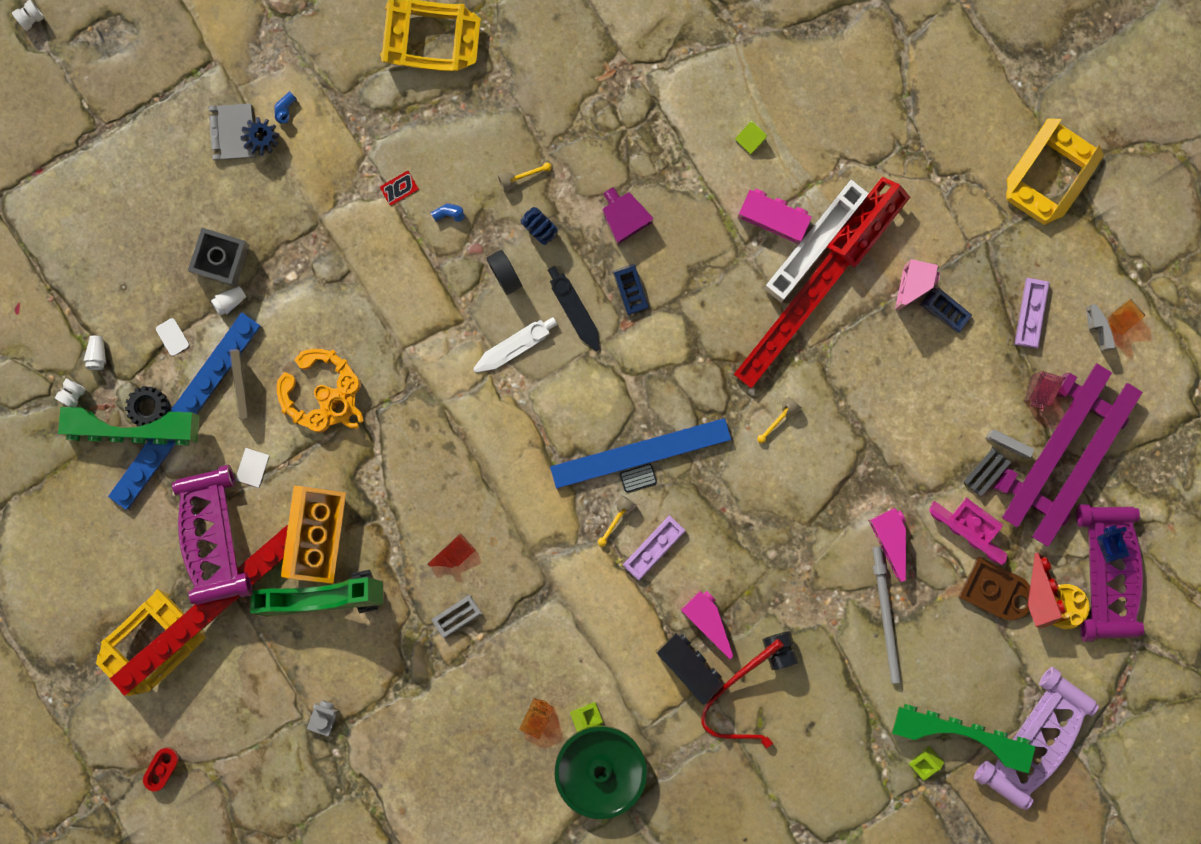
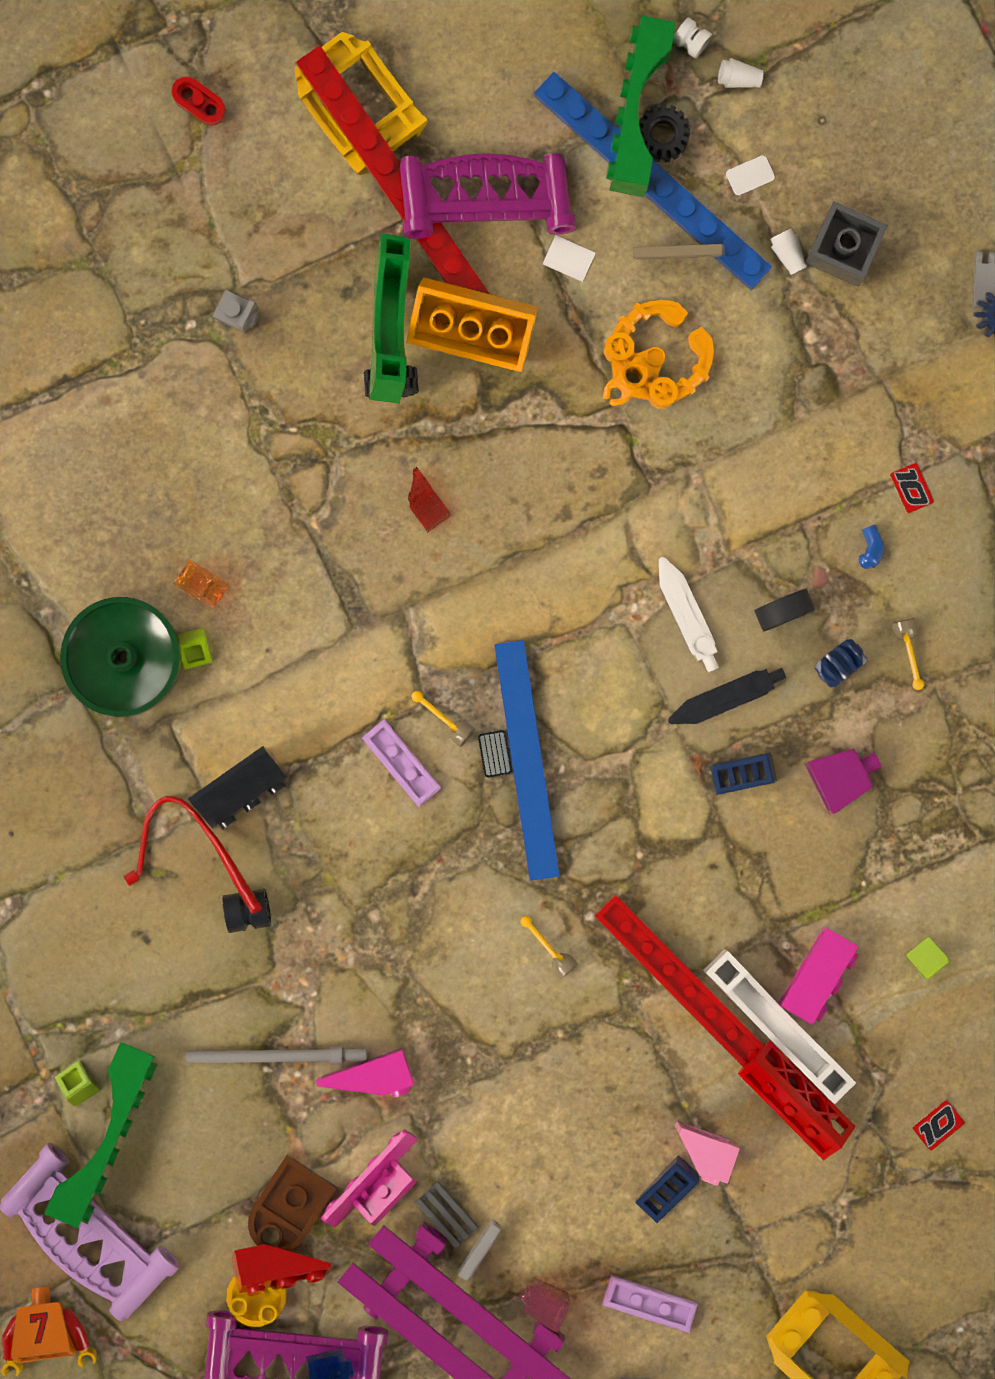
camera: 95 degrees right, 0 degrees up
(473, 605) = (356, 520): light grey tile -> none
(707, 618) = (303, 818): dark pink slope -> none
(872, 116) = (938, 1125): none -> sticker
(1115, 762) = (43, 1333): none -> orange torso

